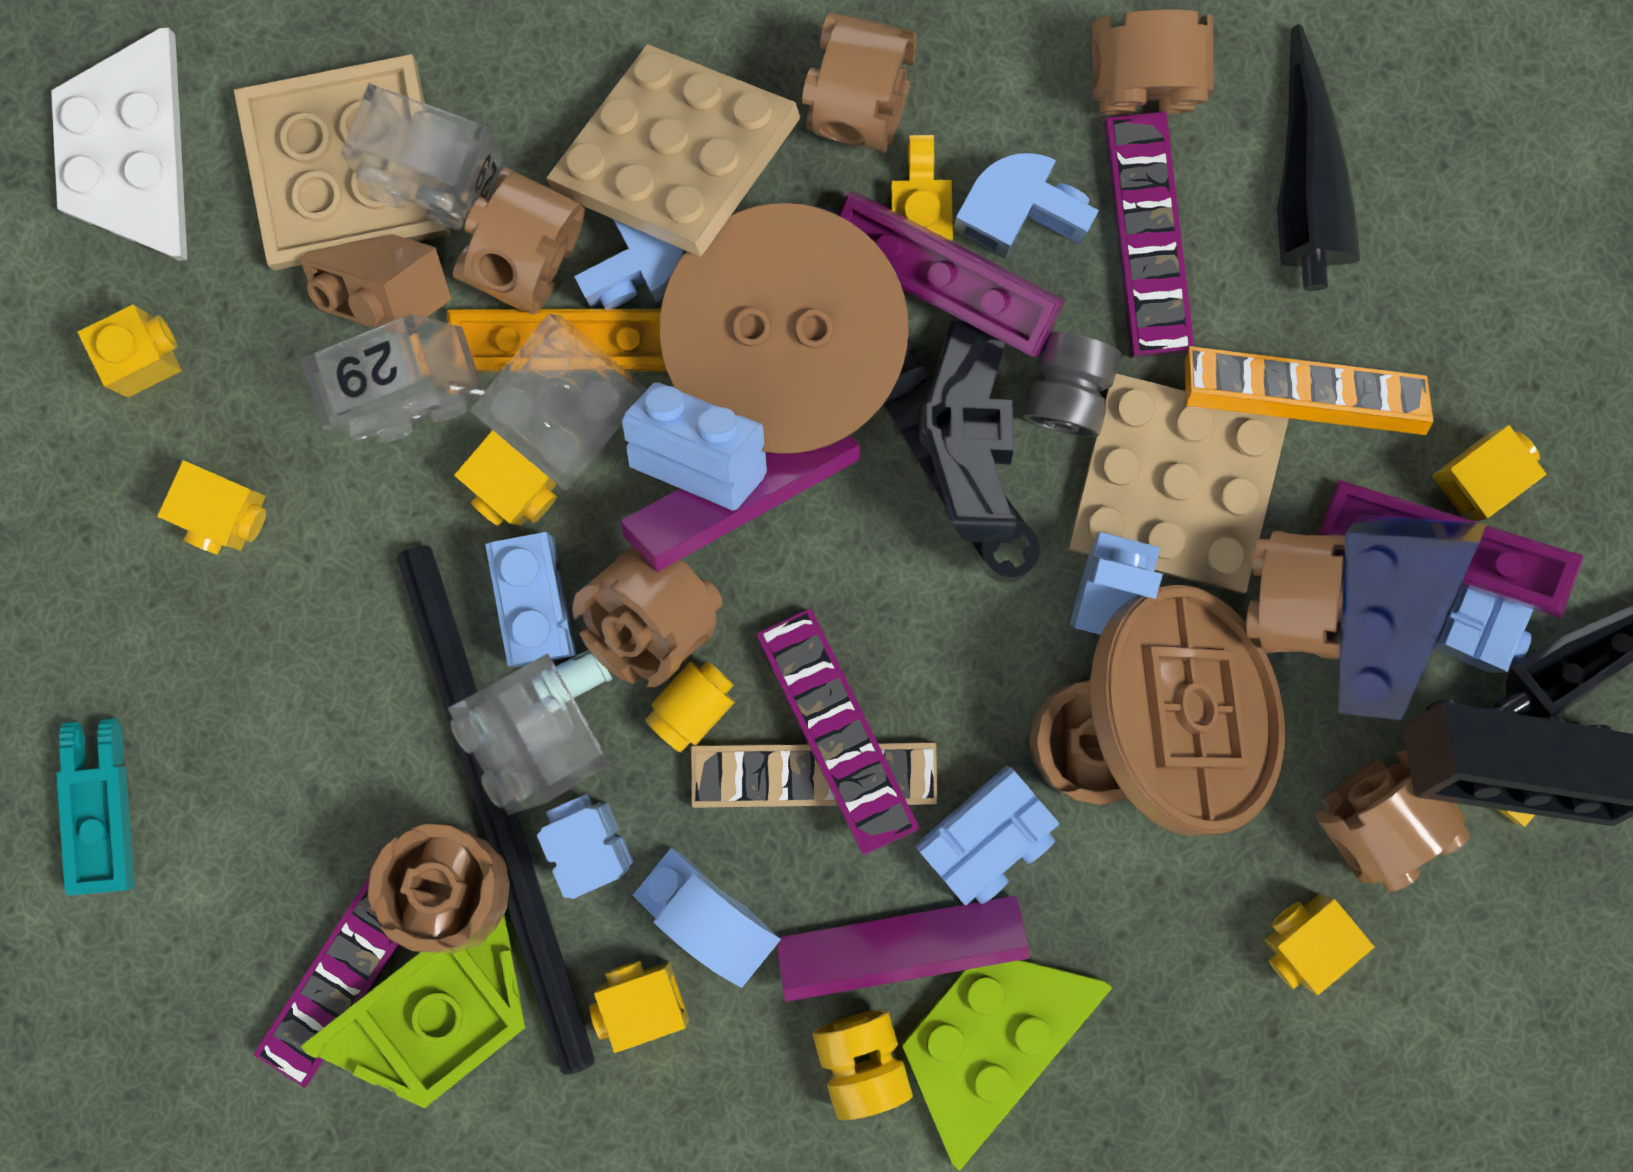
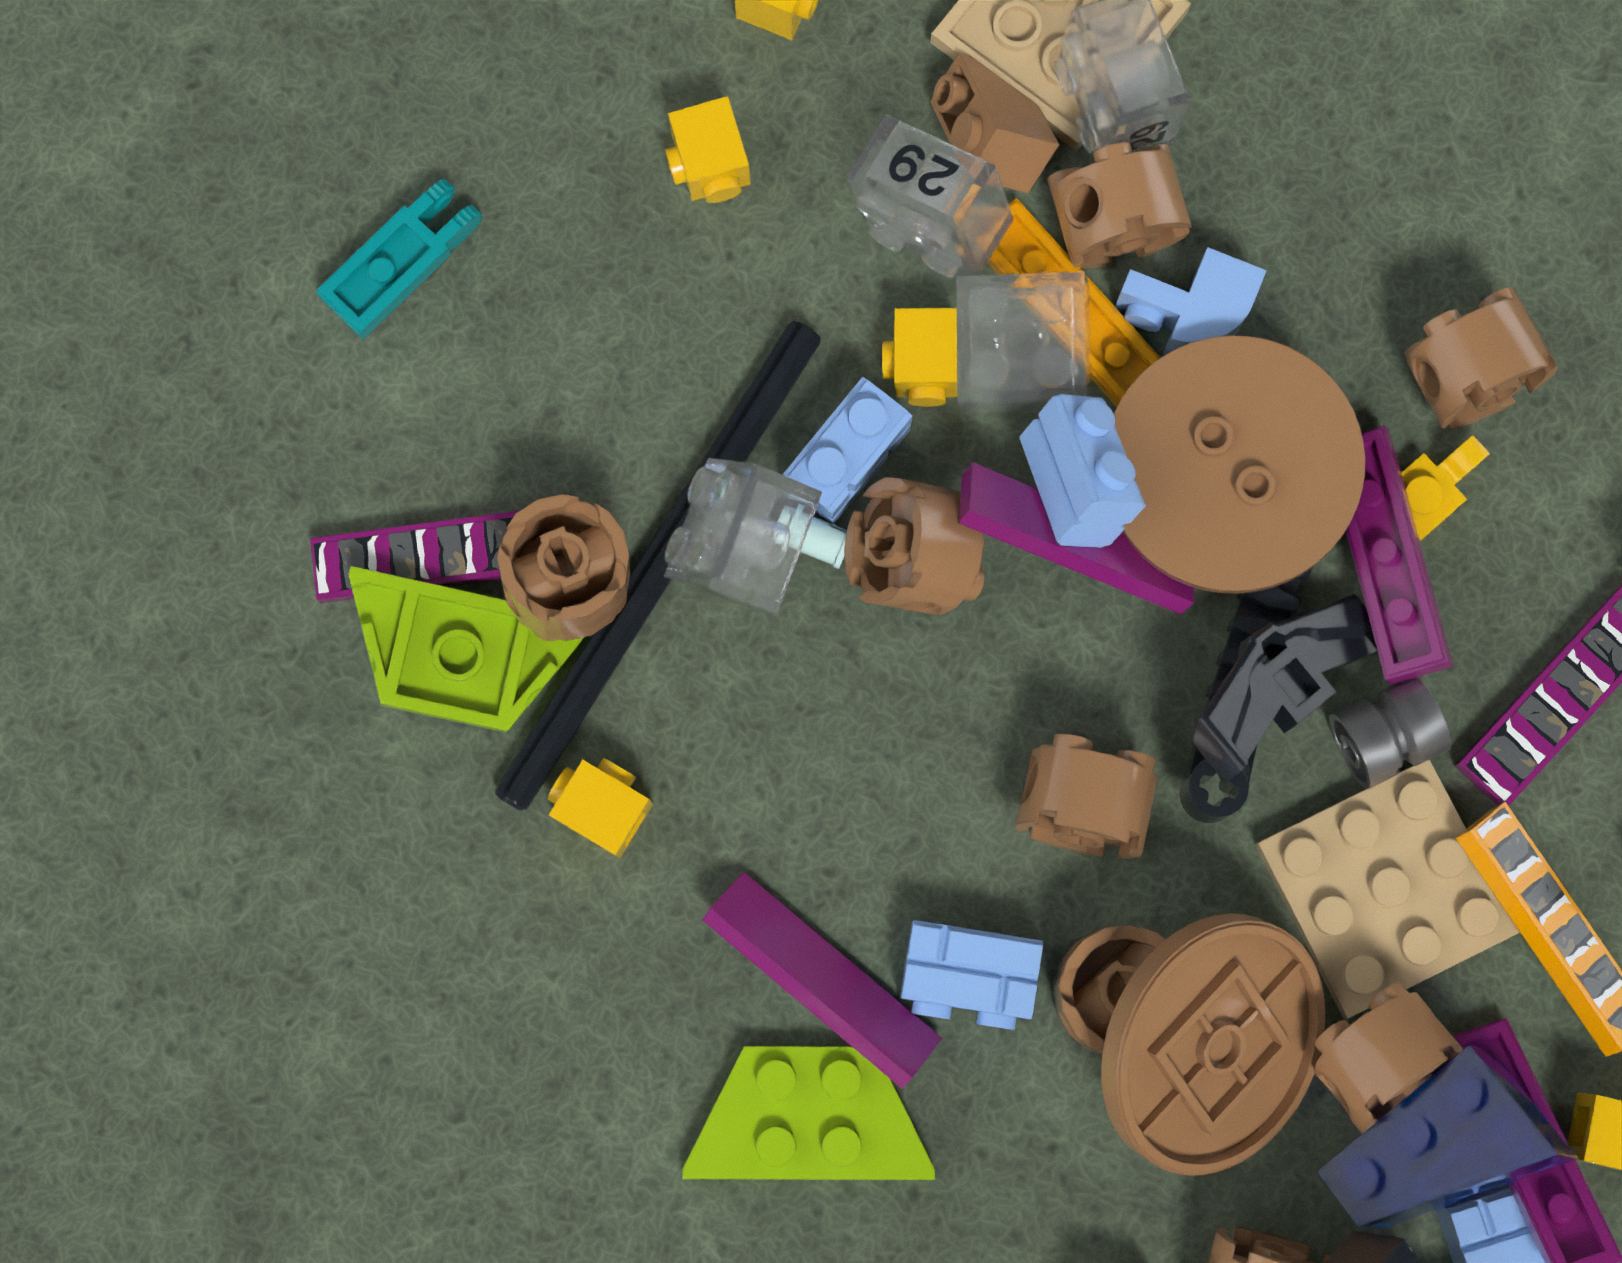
camera: 55 degrees right, 5 degrees down
(584, 846) = (692, 653): light blue brick -> none
(674, 149) = (1298, 261): tan plate -> none
(690, 705) = (871, 646): yellow brick -> none
(705, 919) = (713, 801): light blue brick -> none
(792, 777) = (899, 792): tile -> none
(837, 732) = (950, 780): tile -> none
(869, 1085) = (690, 1044): yellow wheel -> none
(935, 646) = (1087, 797): none -> medium nougat brick
(1018, 190) = (1499, 555): light blue brick -> none
(1113, 575) = (1271, 892): light blue brick -> none

